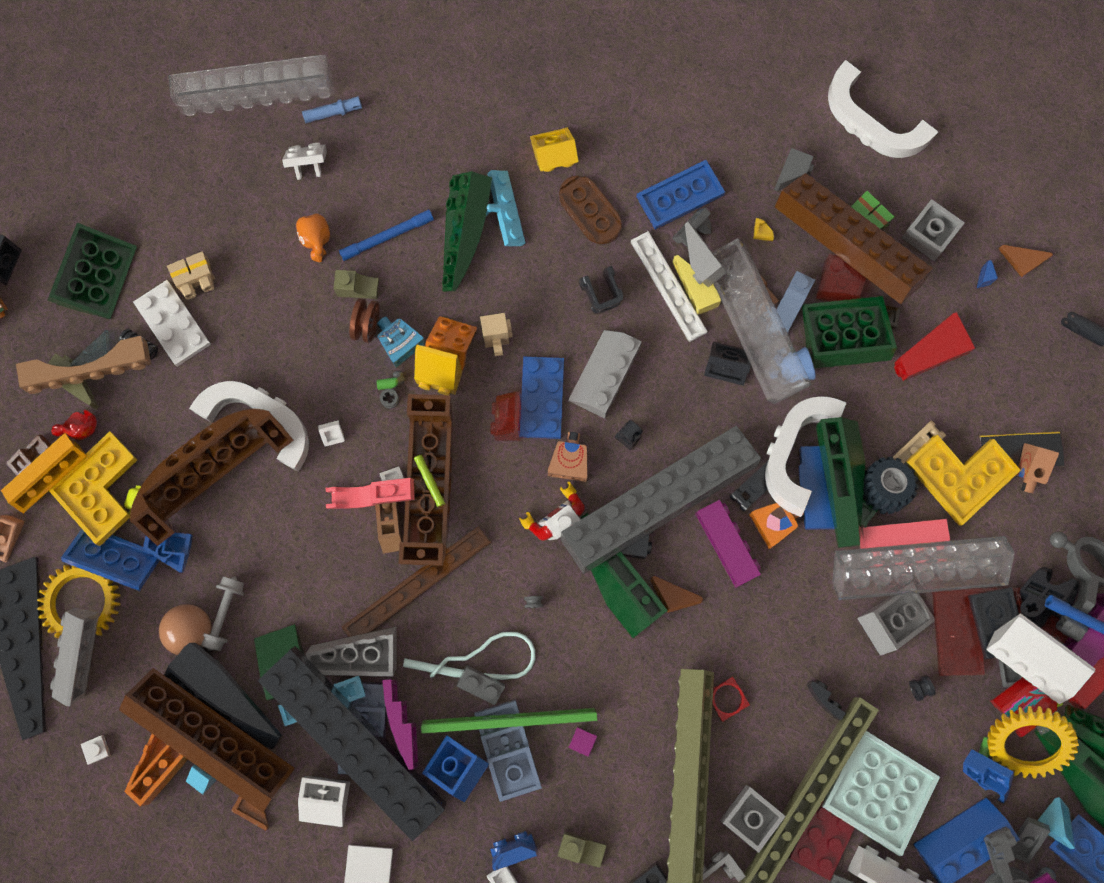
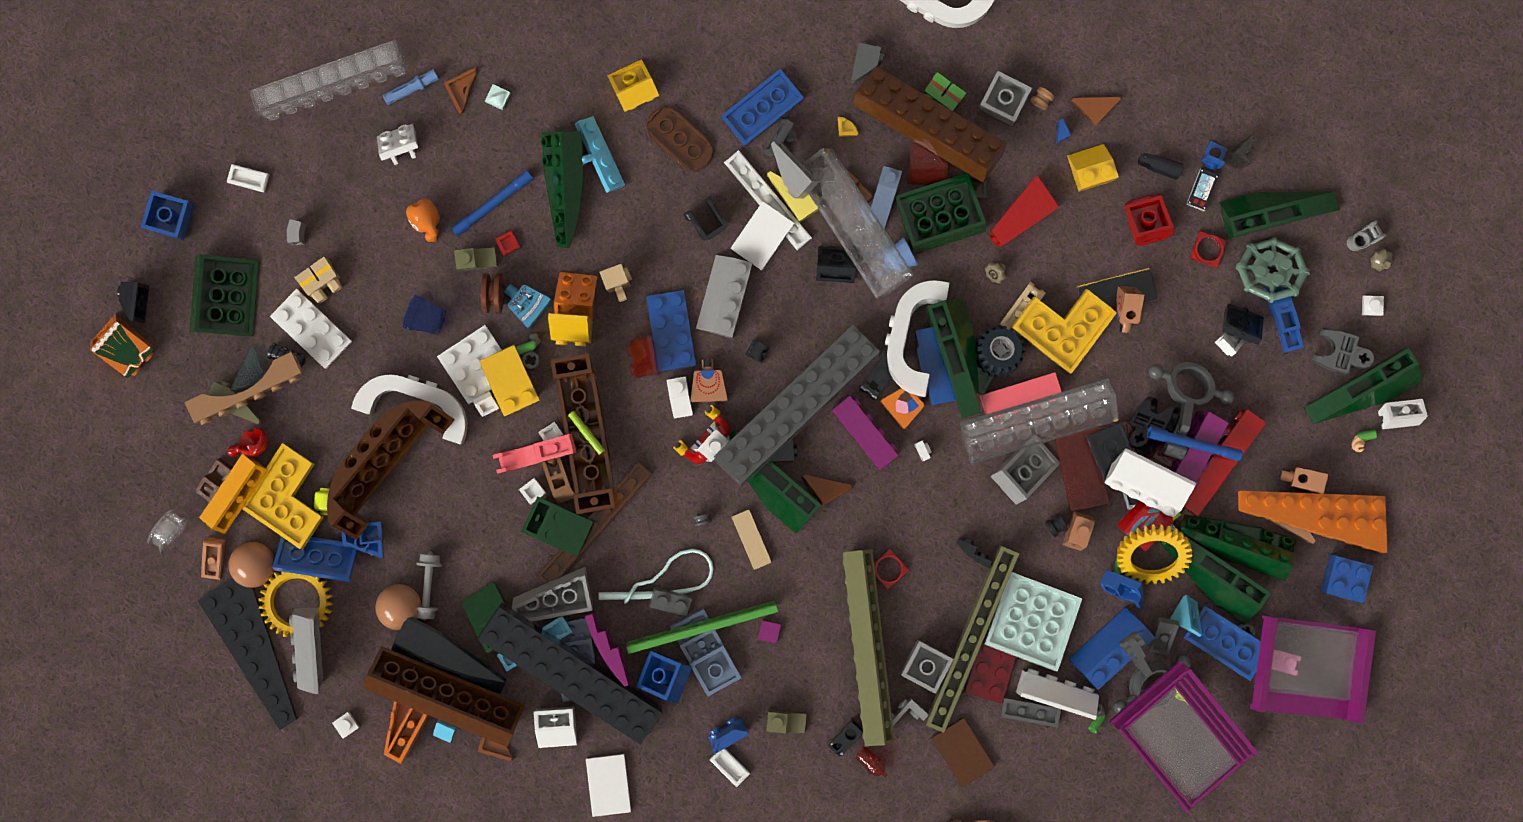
camera: 10 degrees left, 10 degrees up
(41, 552) = (251, 564): none -> nougat piece
(57, 182) = (167, 215): none -> blue brick
(149, 165) = (248, 178): none -> white tile
(181, 224) = (296, 232): none -> light grey piece
(288, 330) = (424, 316): none -> clear blue piece
(332, 391) = (463, 363): none -> white plate
(359, 534) = (532, 490): none -> white plate
(361, 412) = (509, 380): none -> yellow slope
(376, 576) = (557, 526): none -> dark green slope
(380, 120) = (460, 87): none -> dark orange tile
(393, 277) = (508, 243): none -> red tile
(416, 135) = (497, 97): none -> light aqua tile
(536, 466) = (679, 397): none -> white slope
(583, 635) = (751, 539): none -> tan tile
(657, 318) = (762, 235): none -> white tile
(787, 575) = (923, 450): none -> white plate
(895, 403) = (995, 272): none -> dark tan piece
(948, 699) = (1079, 531): none -> nougat torso
(971, 239) = (1042, 98): none -> medium nougat wheel
(1014, 318) = (1092, 167): none -> yellow slope
(1068, 381) = (1148, 219): none -> red slope

